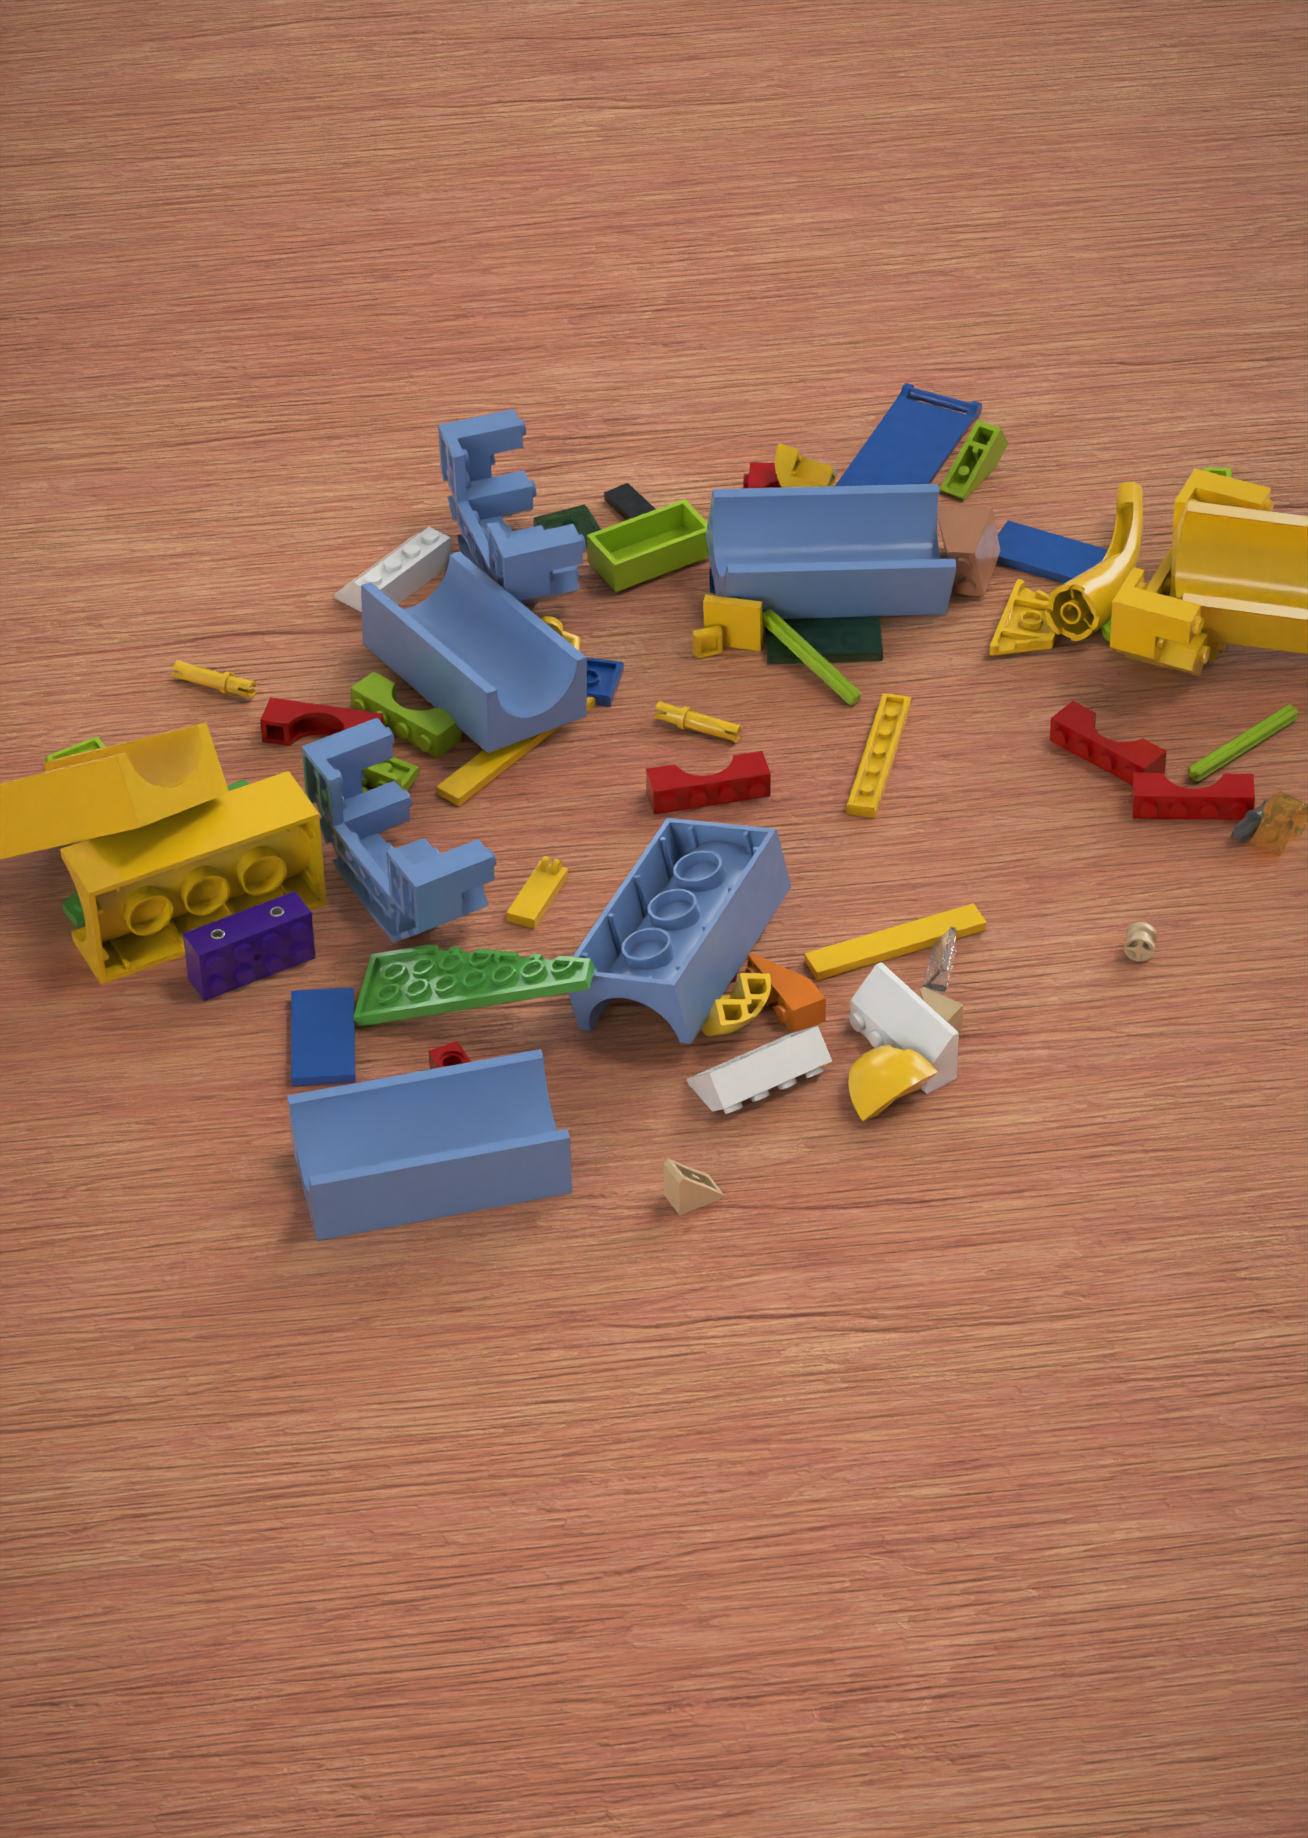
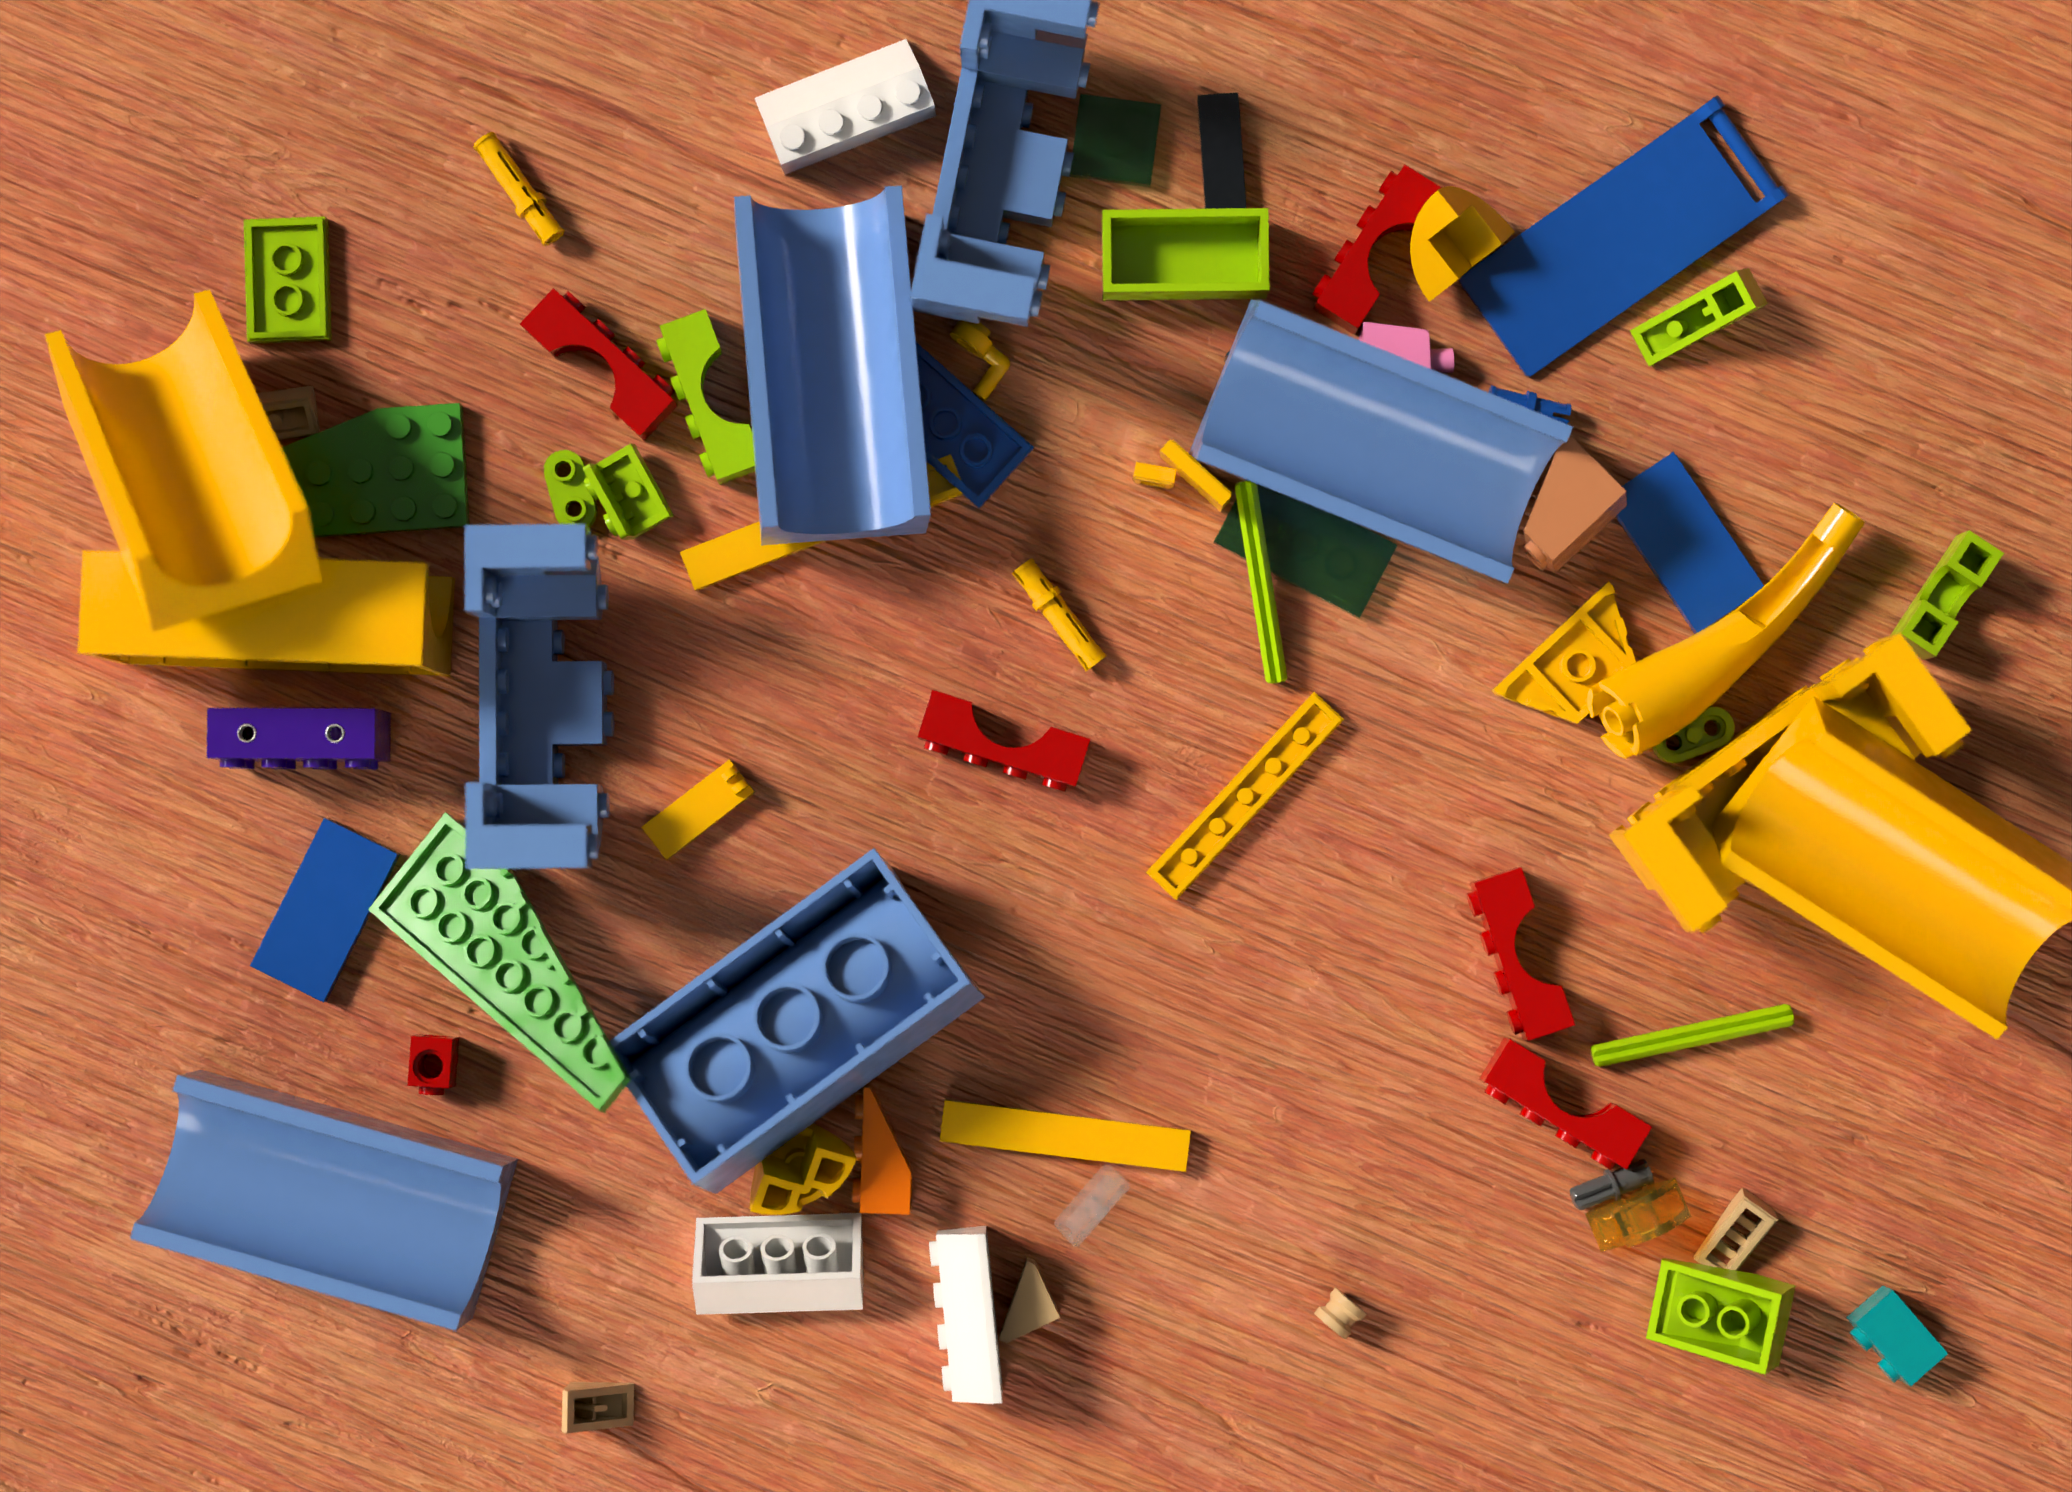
camera: 30 degrees right, 45 degrees up
(884, 1076) = (900, 1378): yellow brick -> none

